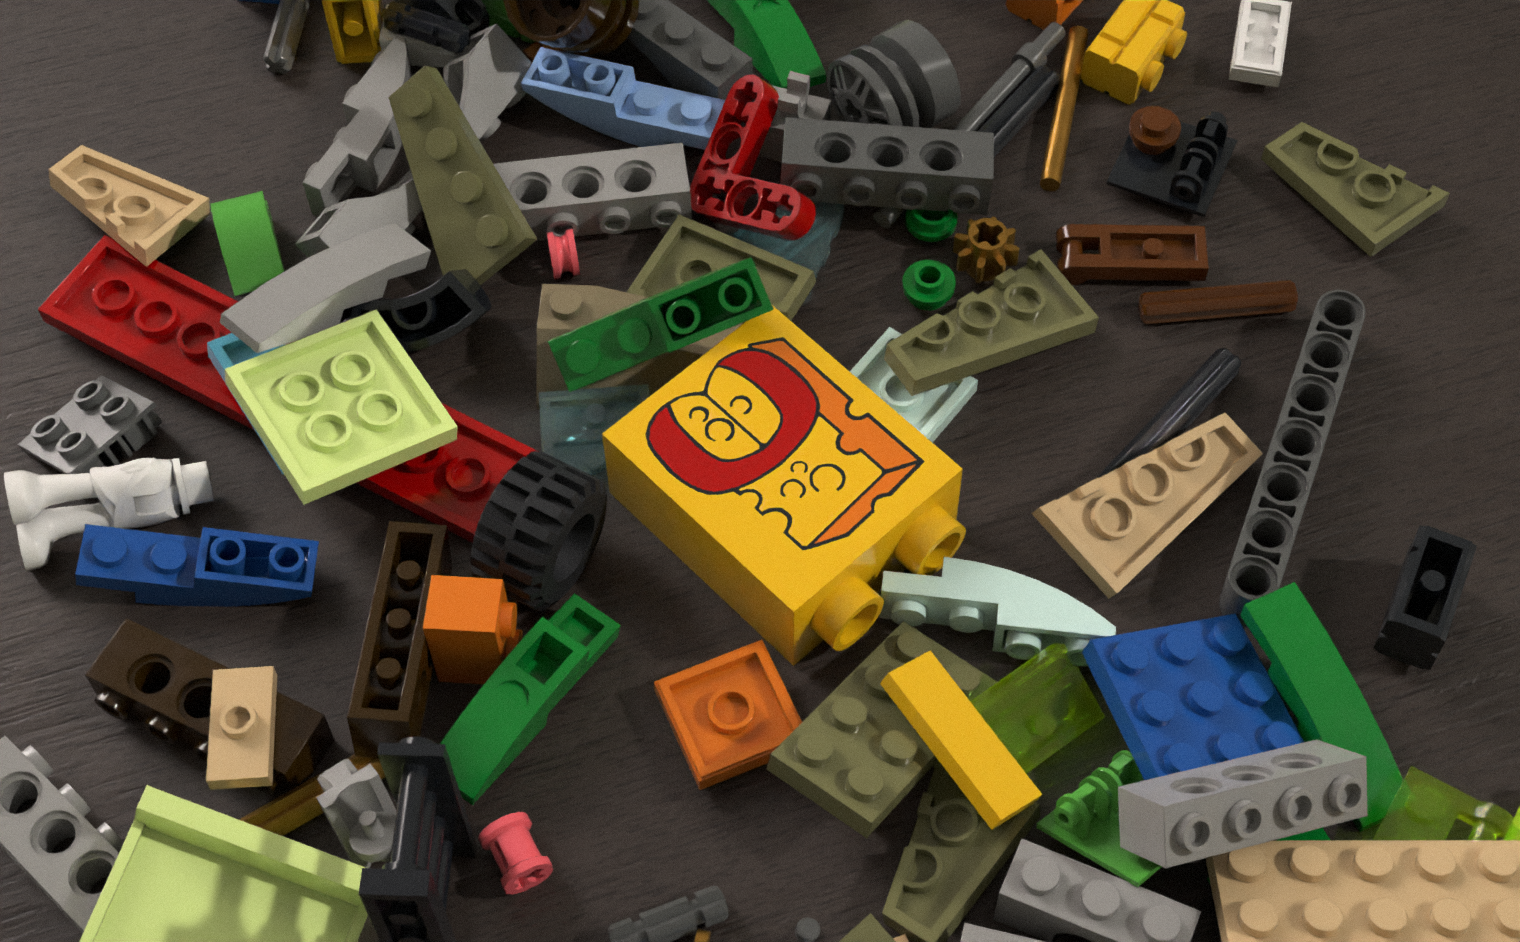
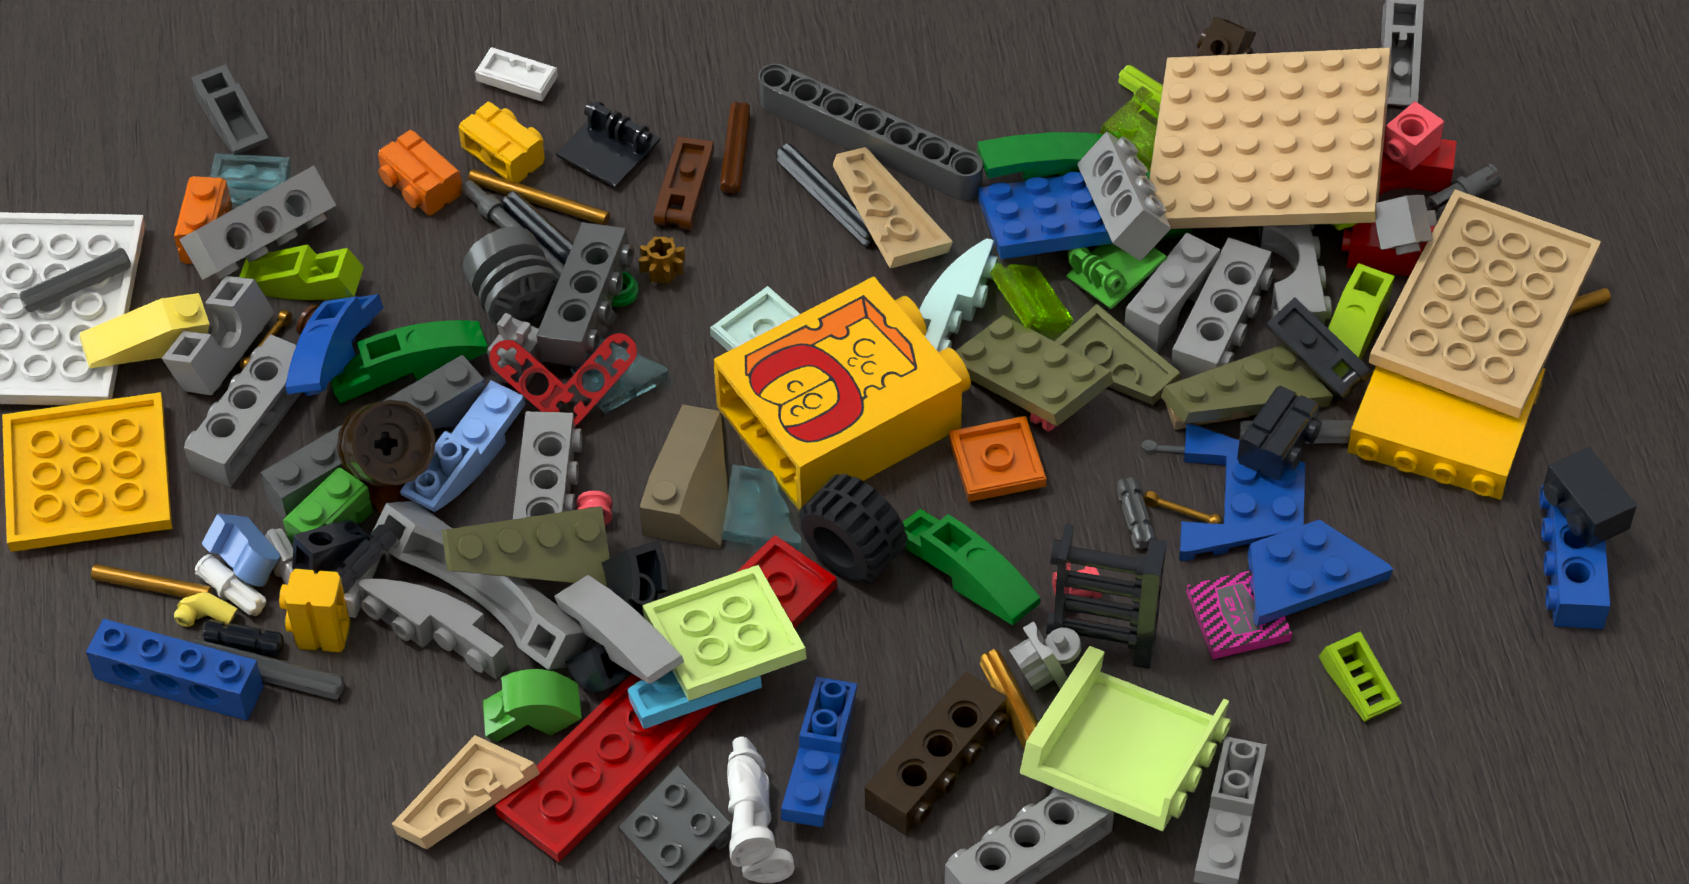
camera: 80 degrees left, 5 degrees down
(242, 728) = (971, 713): tan plate -> none
(395, 656) = (917, 620): dark brown brick -> none
(469, 627) = (918, 581): orange brick -> none
(661, 324) = (706, 416): green slope -> none
(696, 250) = (641, 416): olive wing -> none
(928, 295) = (678, 300): green plate -> none
(961, 739) = (1054, 325): yellow tile -> none
(1004, 323) = (730, 264): olive wing -> none
(1154, 129) = (584, 146): reddish brown plate -> none
(1355, 195) = (665, 55): olive wing -> none
(1425, 597) = (993, 88): black brick -> none

